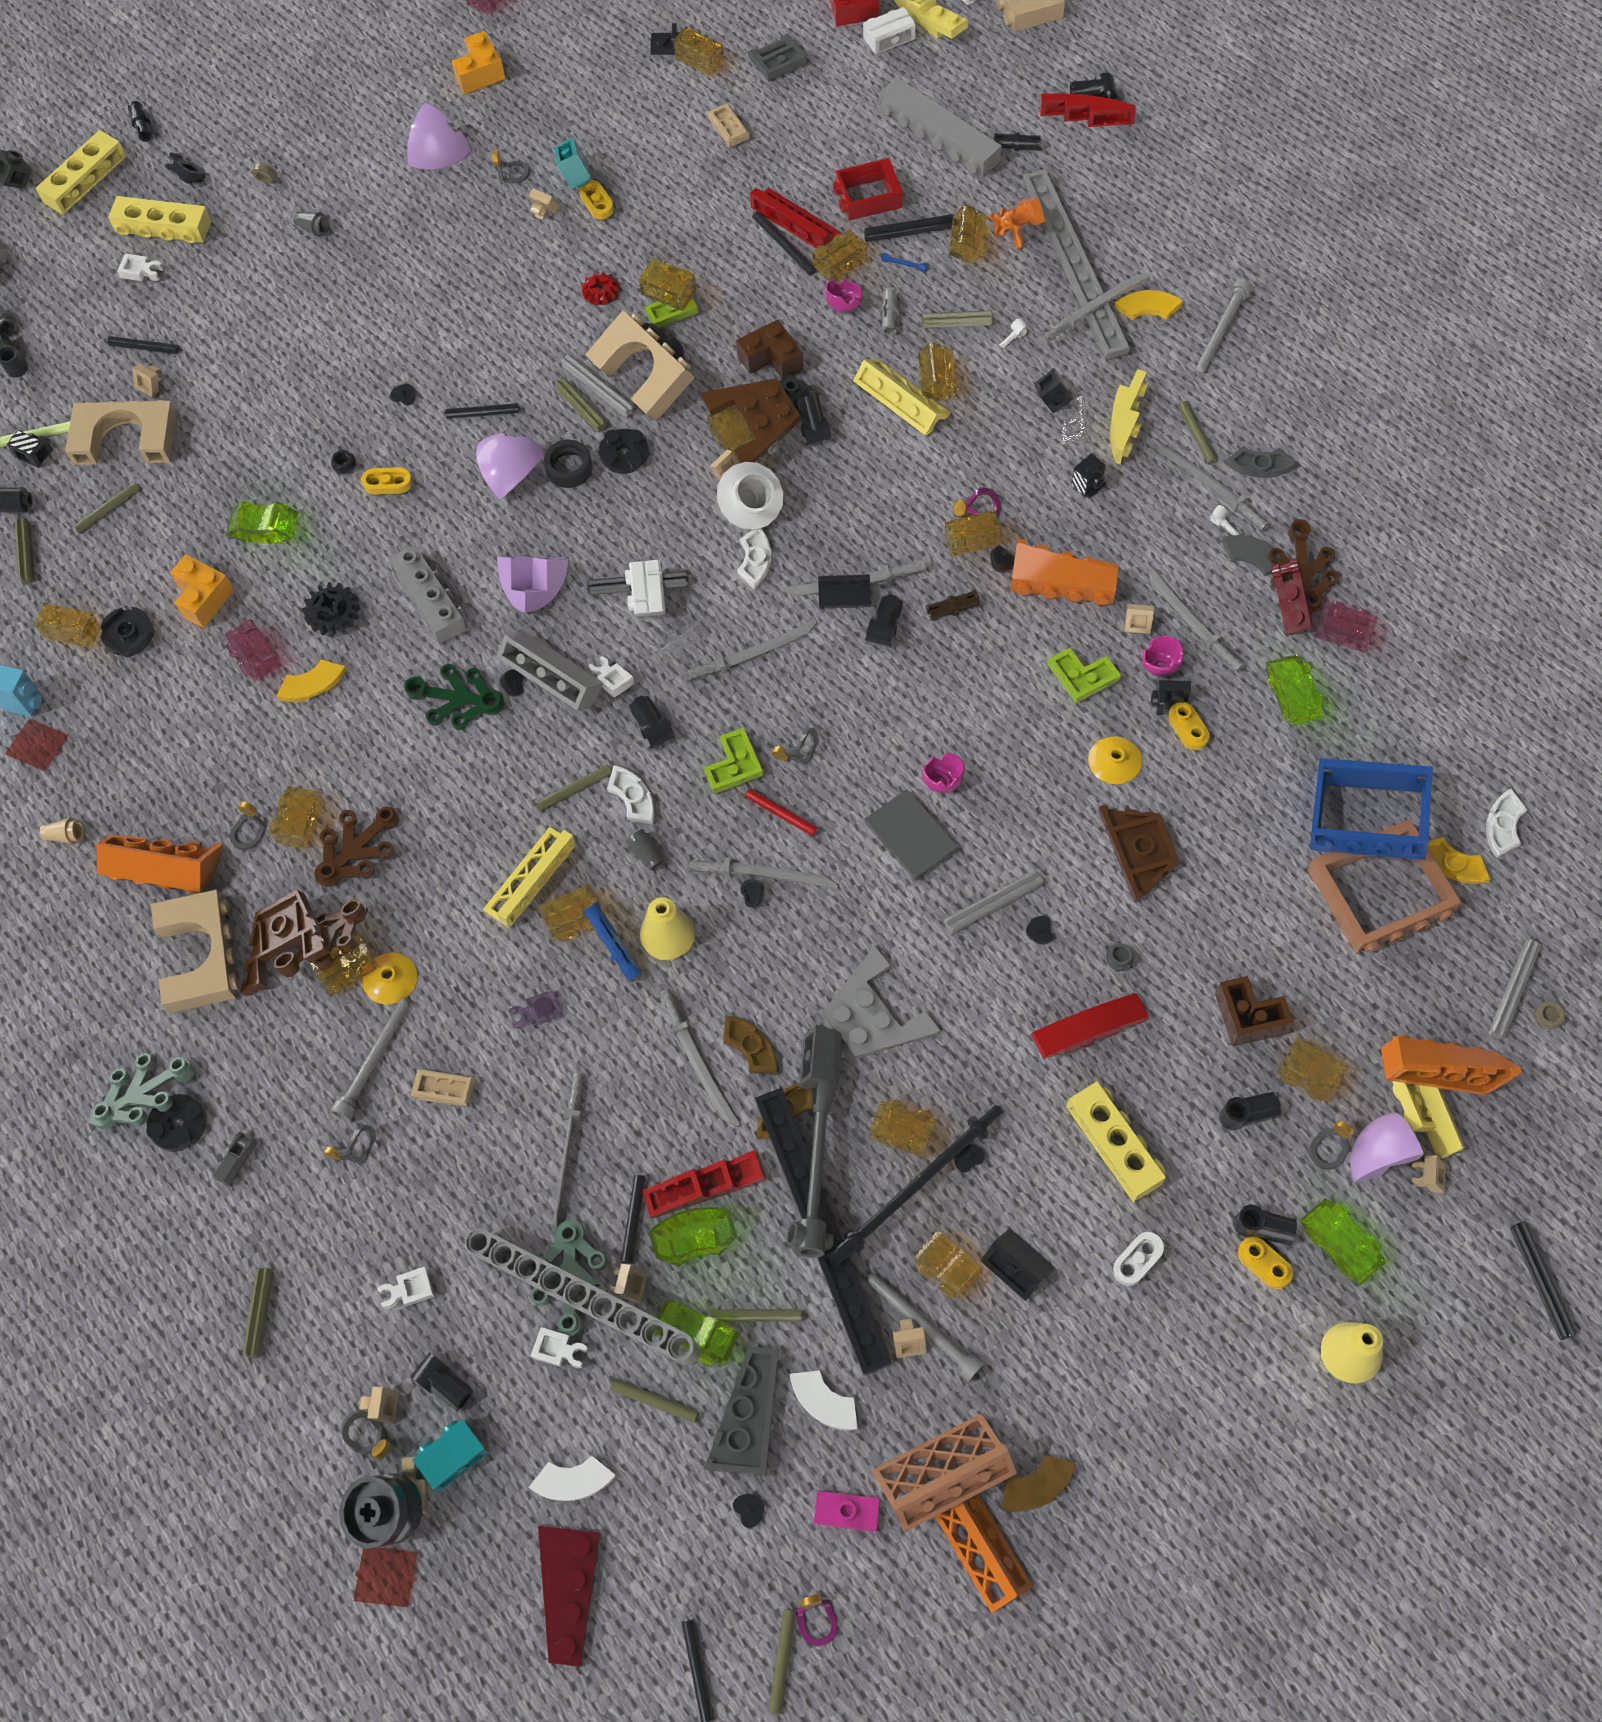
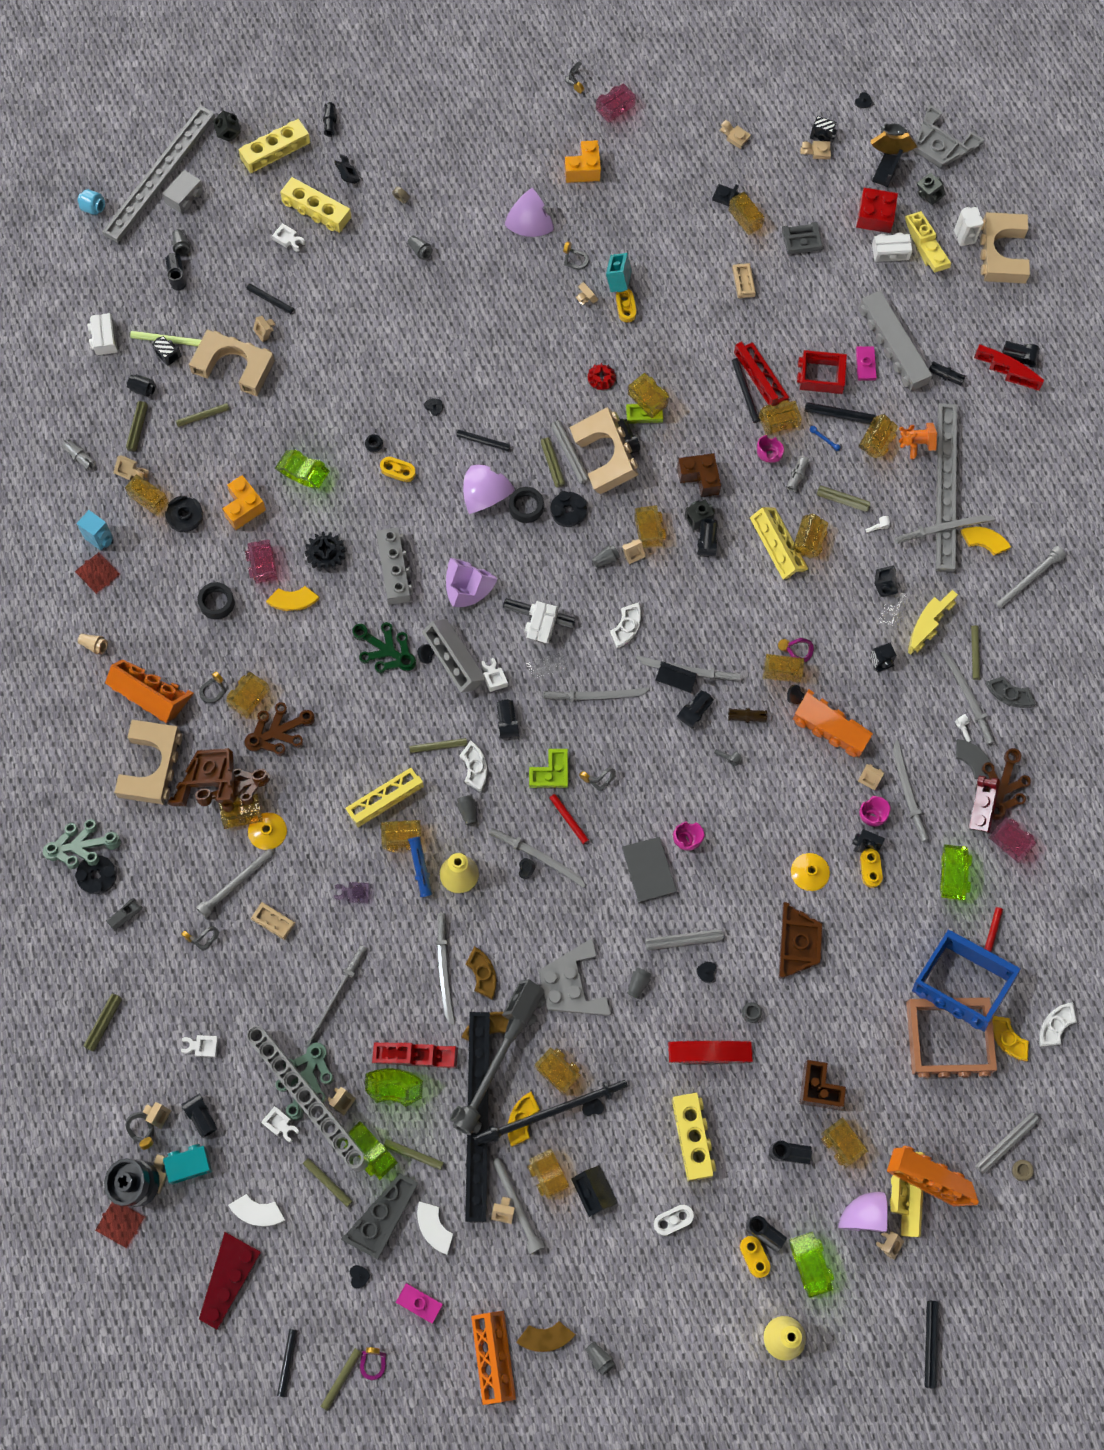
camera: 15 degrees right, 5 degrees up
(29, 602) = (127, 468): none -> tan plate
(215, 735) = (213, 587): none -> black tyre
(633, 1219) = (360, 1058): black bar -> none
(695, 486) = (606, 556): none -> dark grey cone
(749, 495) = (640, 580): white helmet -> none
(764, 410) = (675, 518): reddish brown wing -> none
(877, 1195) = (523, 1108): none -> yellow tile
(915, 164) = (865, 363): none -> dark pink plate
(951, 1485) = (489, 1317): nougat fence -> none
(959, 663) = (734, 759): none -> dark grey hand
(959, 975) = (639, 981): none -> dark grey cone
(1079, 680) = (810, 805): lime plate -> none
(1123, 1482) = (601, 1360): none -> dark grey cone
(1345, 1132) = (842, 1190): dark grey piece -> none
(1372, 737) = (993, 929): none -> red bar

